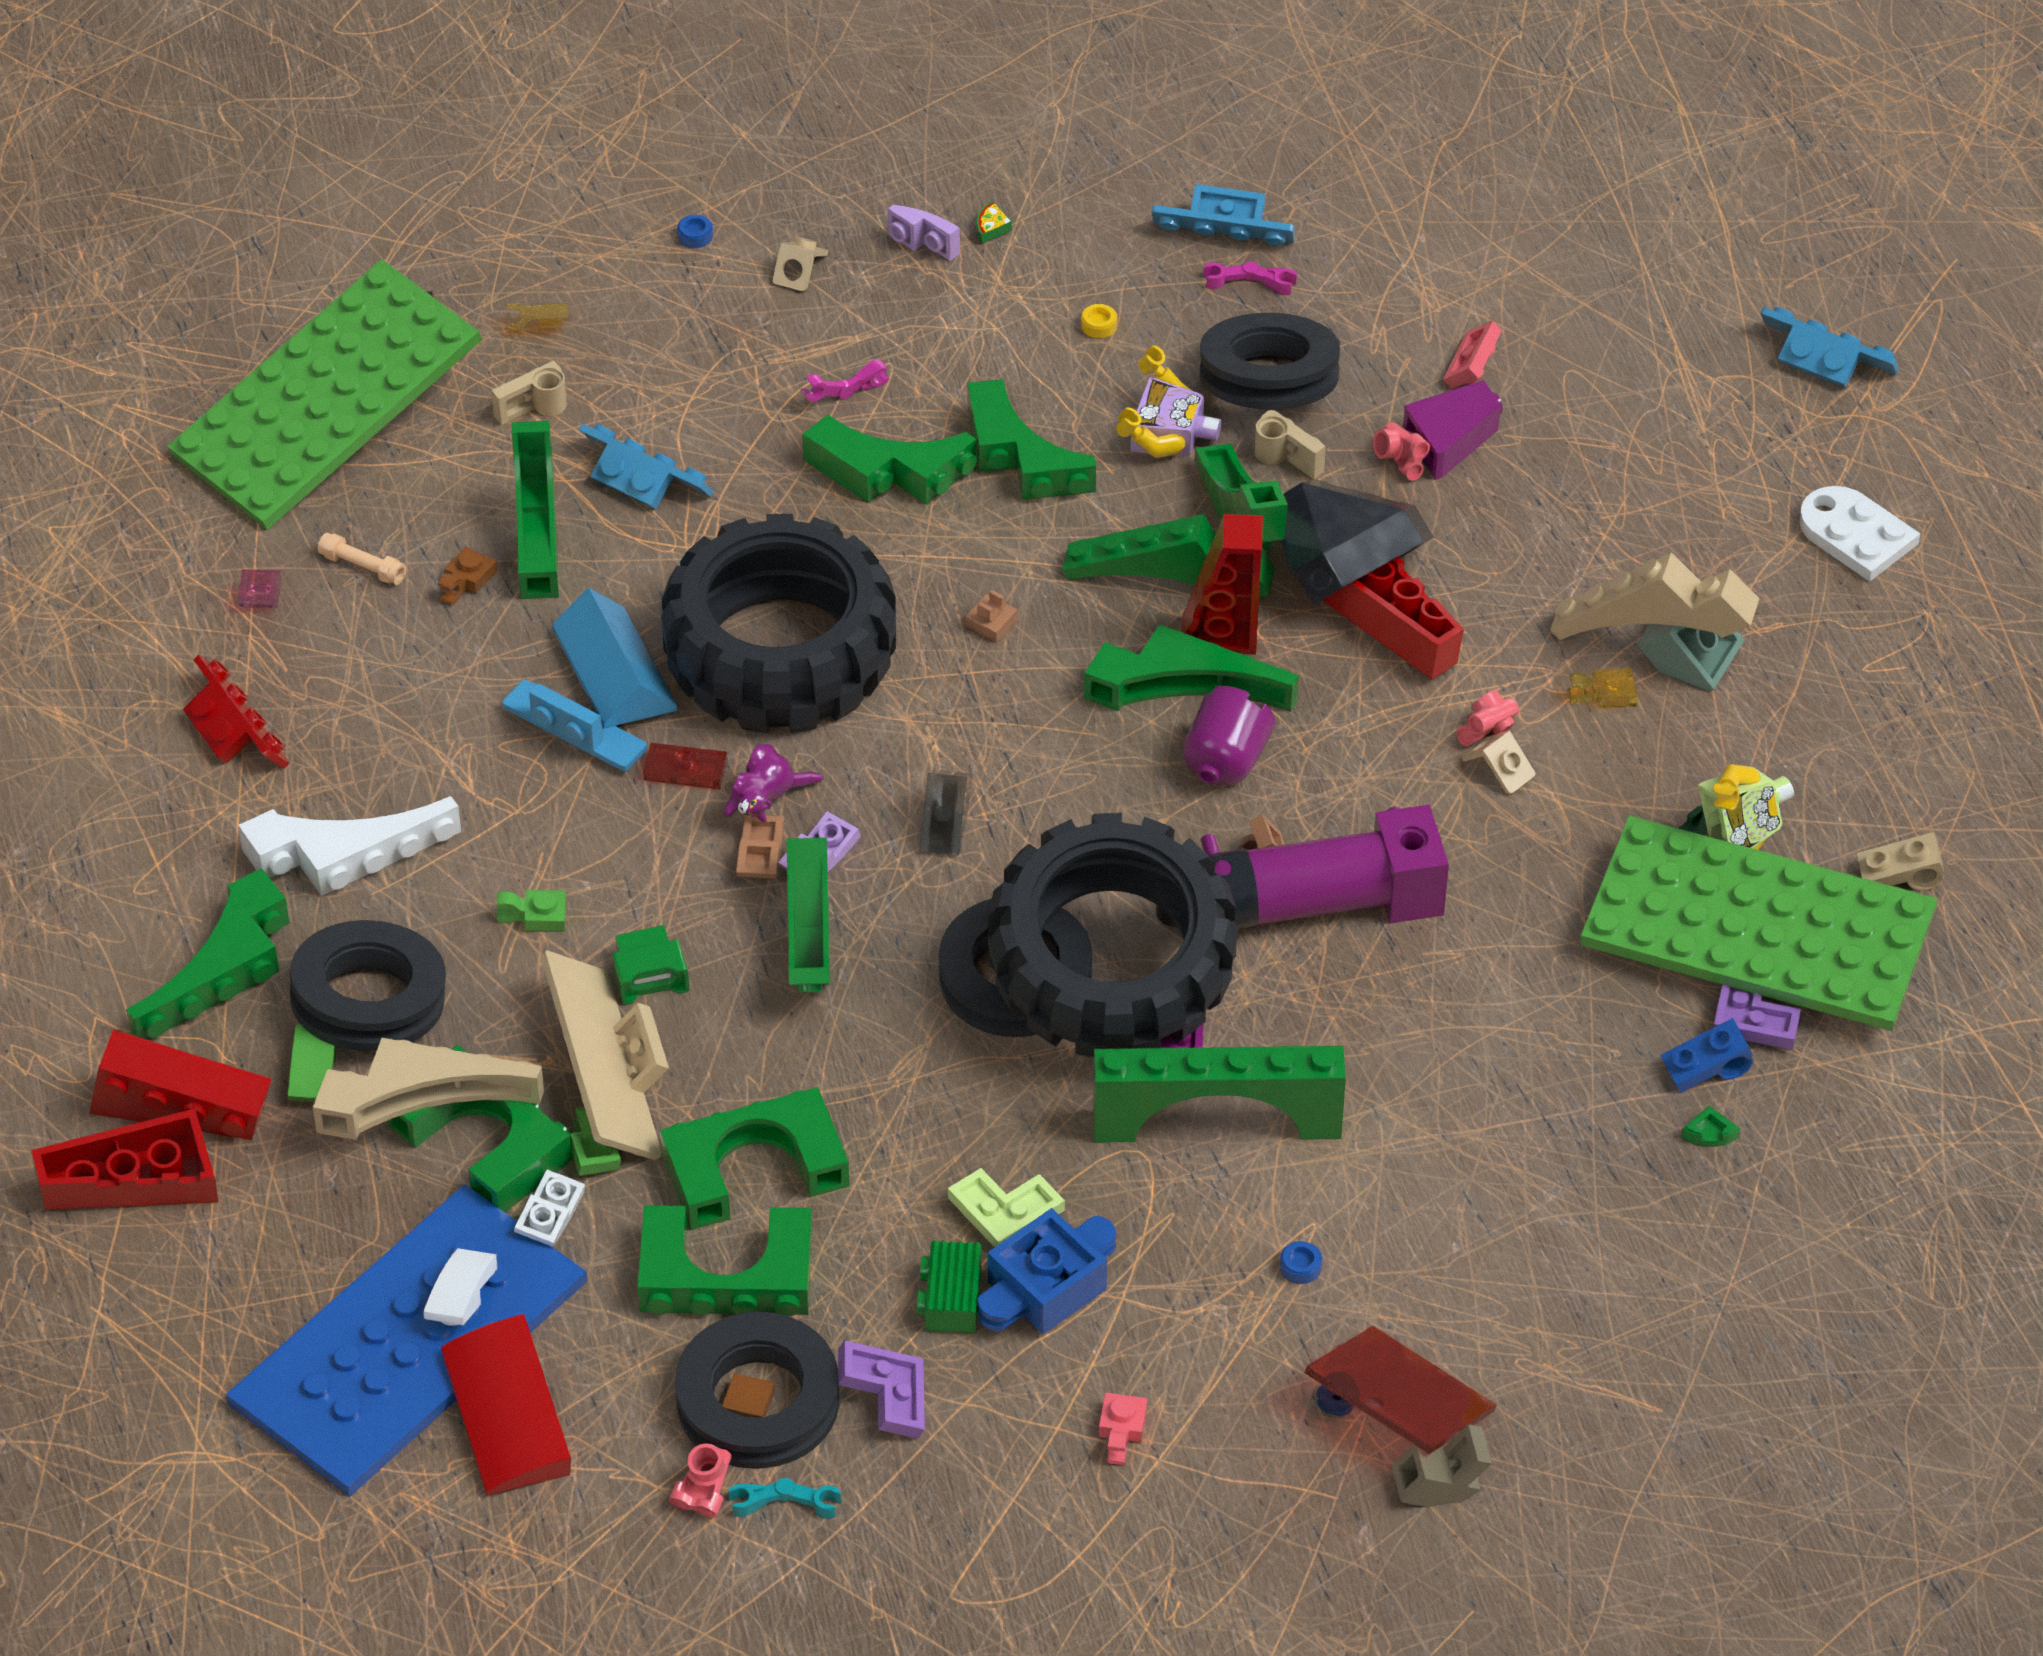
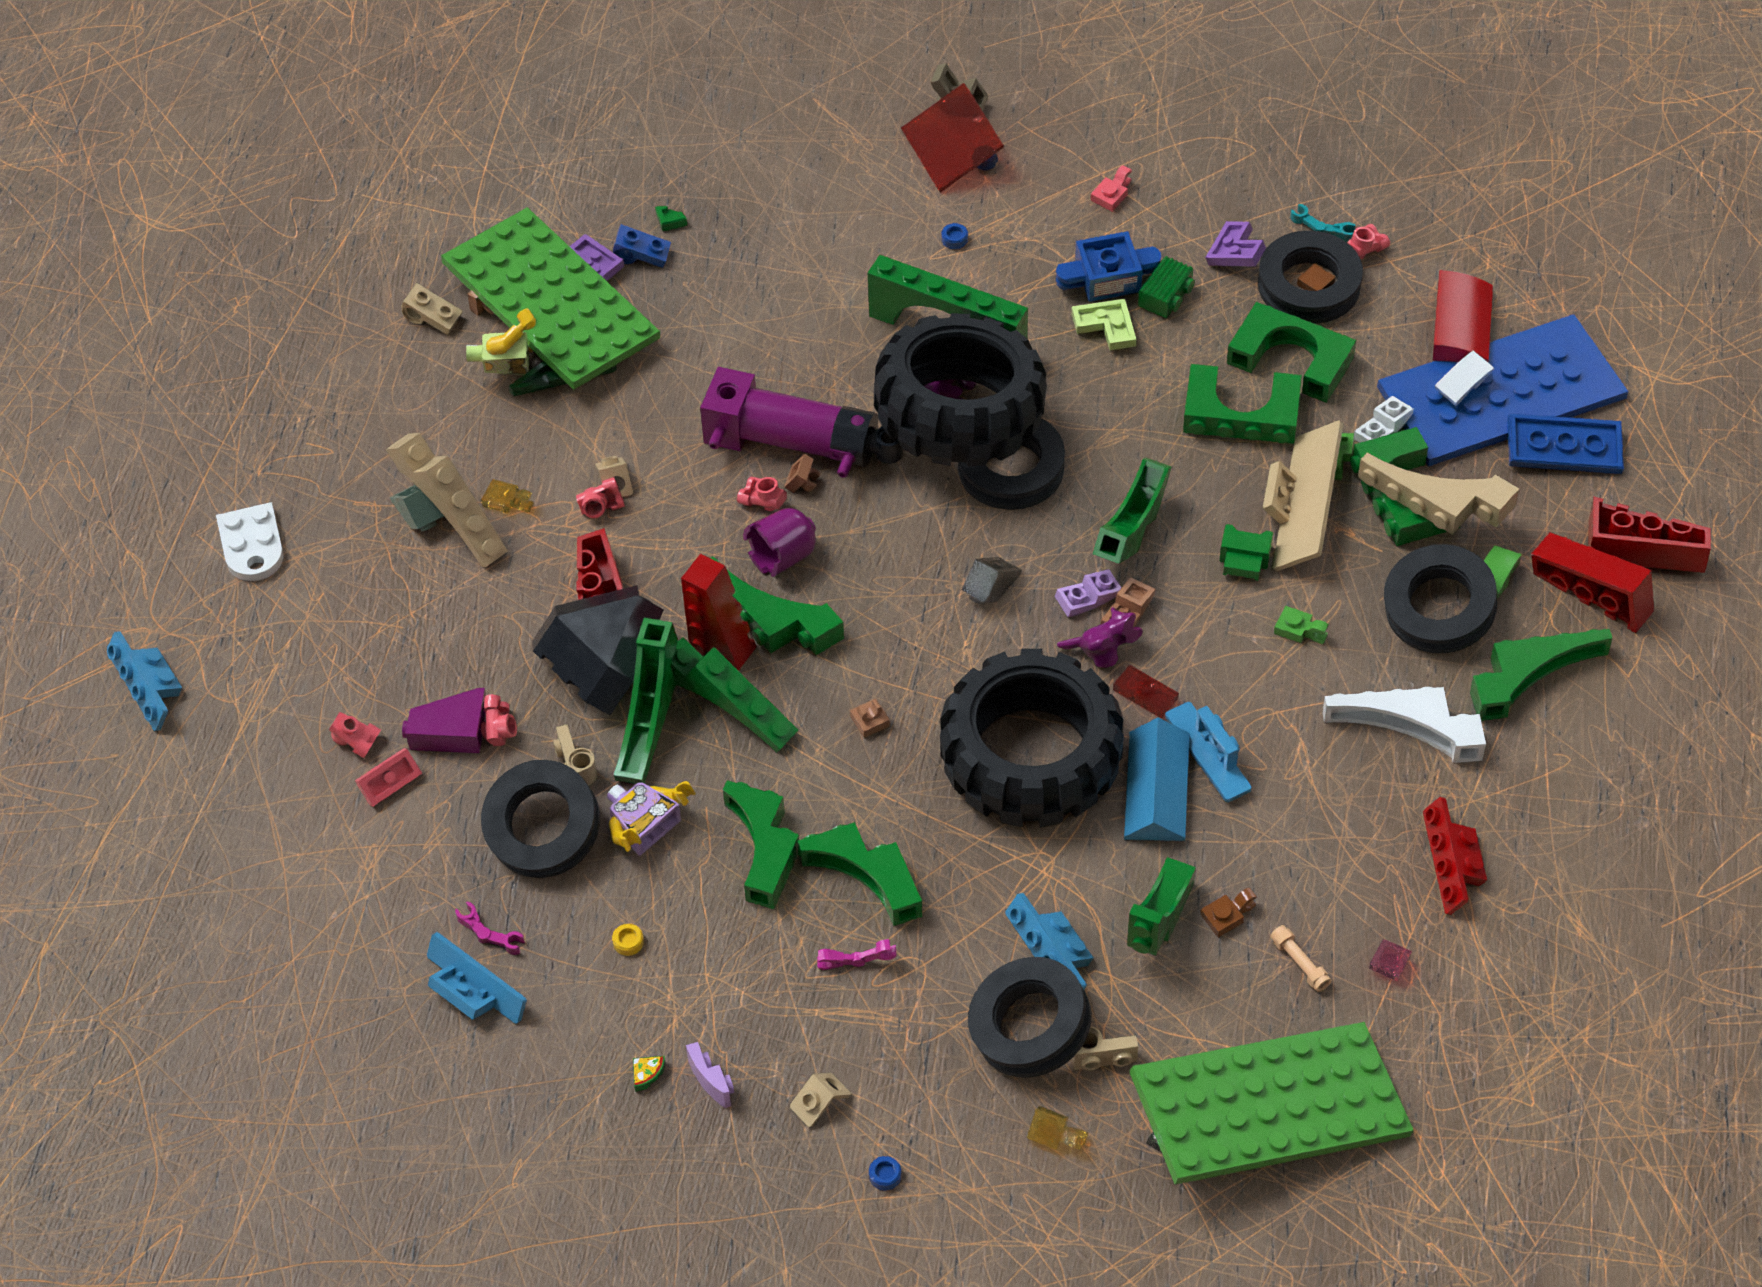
camera: 150 degrees left, 5 degrees up
(286, 1279) = (1565, 443): none -> blue tile
(612, 404) = (1047, 1050): none -> black tyre
(1295, 801) = (762, 493): none -> coral plate
(1552, 375) = (357, 735): none -> coral plate

